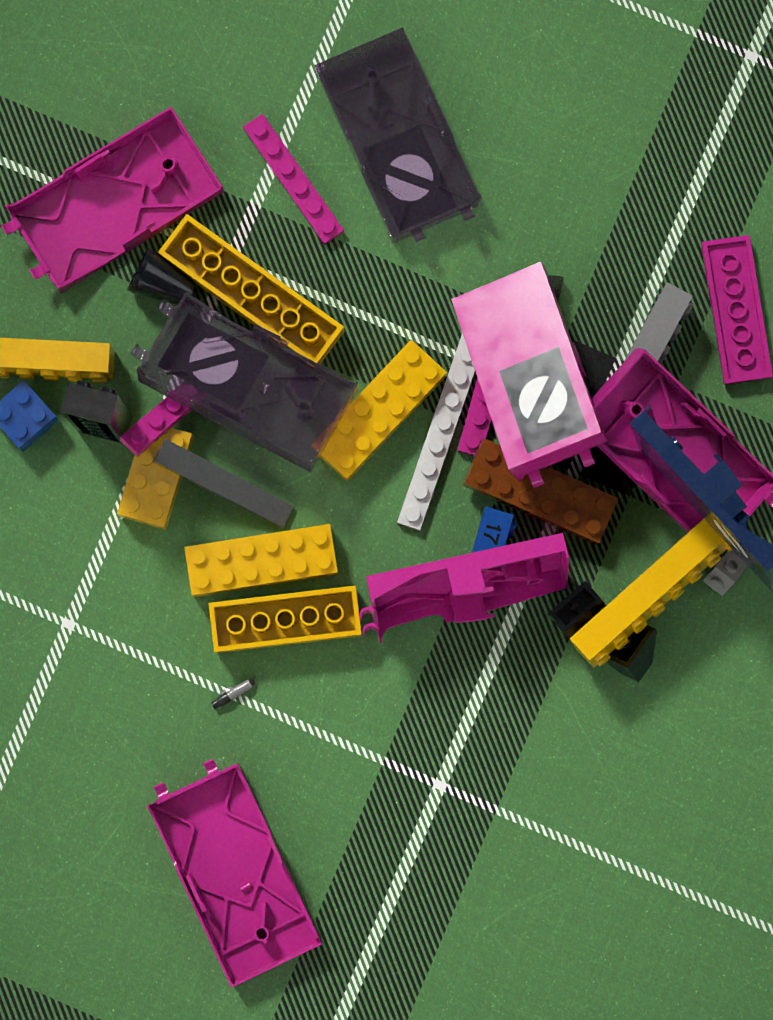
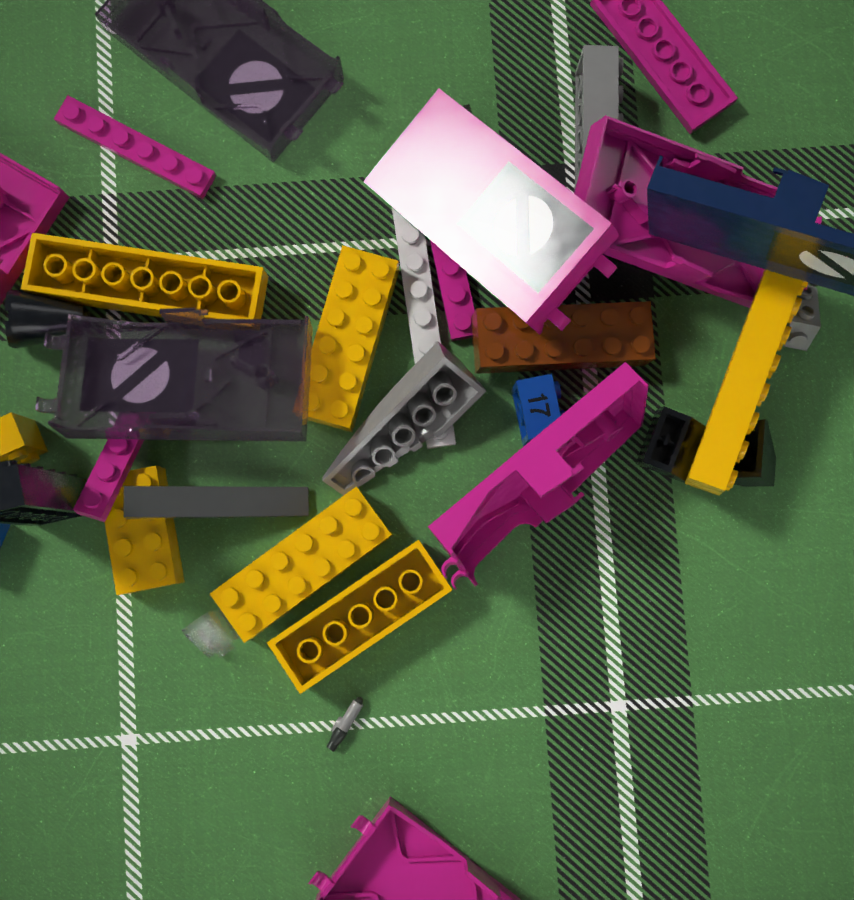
camera: 25 degrees left, 0 degrees up
(170, 577) = (212, 634): none -> clear slope
(396, 491) = (413, 411): none -> light grey wedge

